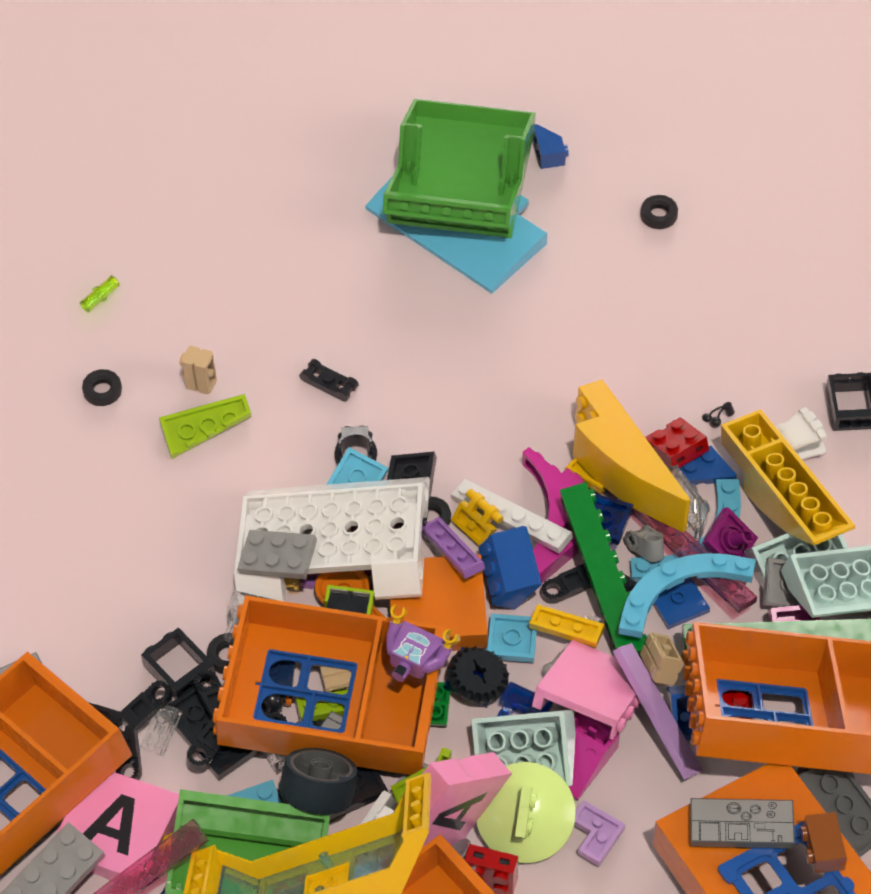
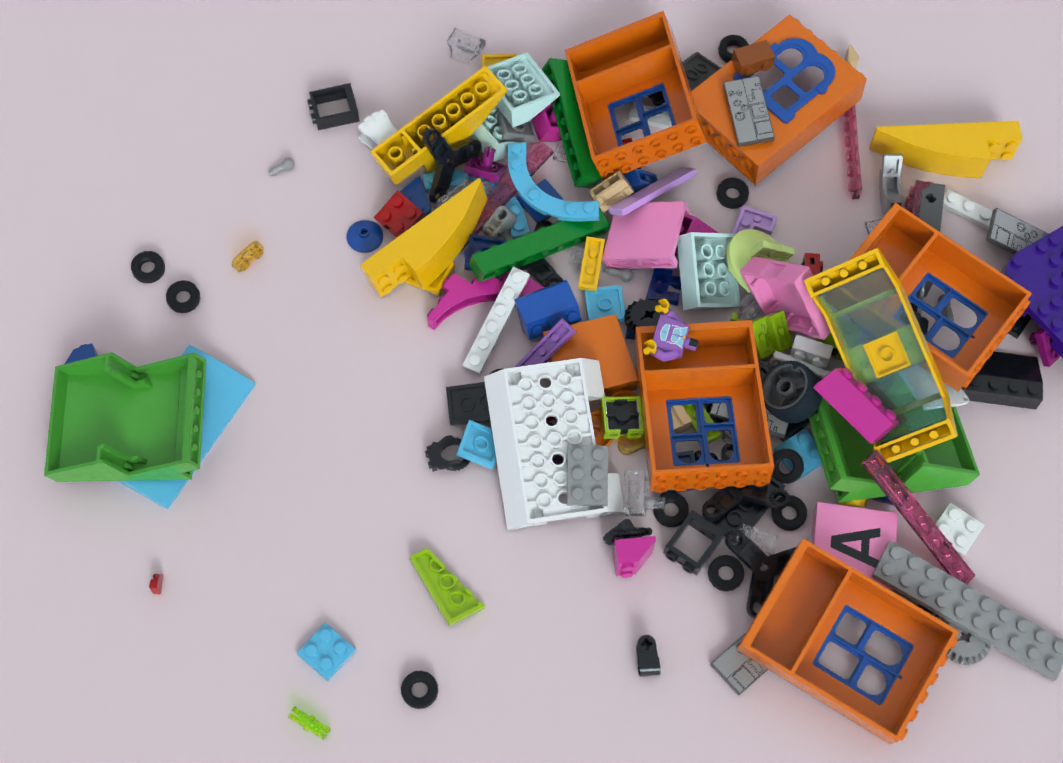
camera: 105 degrees left, 10 degrees up
(61, 590) = (647, 660): none -> black piece
(126, 681) = (717, 581): none -> black tyre
(169, 317) = (326, 651): none -> medium azure plate
(175, 767) = (797, 522): none -> black tyre
(177, 590) = (631, 554): none -> dark pink slope
(198, 369) = (393, 599): tan brick -> none
(207, 585) = (626, 530): none -> black piece
(243, 772) = (798, 466): none -> black tyre
(268, 829) = (857, 404): none -> dark pink slope
(283, 190) = (156, 583): none -> red tile
(328, 380) = (376, 494): black plate -> none
(472, 522) = (507, 348): yellow plate -> none
(614, 249) = (183, 307): none -> black tyre
(644, 808) = (732, 203): none -> black tyre
(653, 297) = (247, 256): none -> clear yellow plate
(656, 418) = (364, 242): none -> blue dish
(716, 421) = (367, 198): black piece -> none
(743, 477) = (441, 152): none -> black piece
(777, 349) = (287, 164): none -> light grey piece

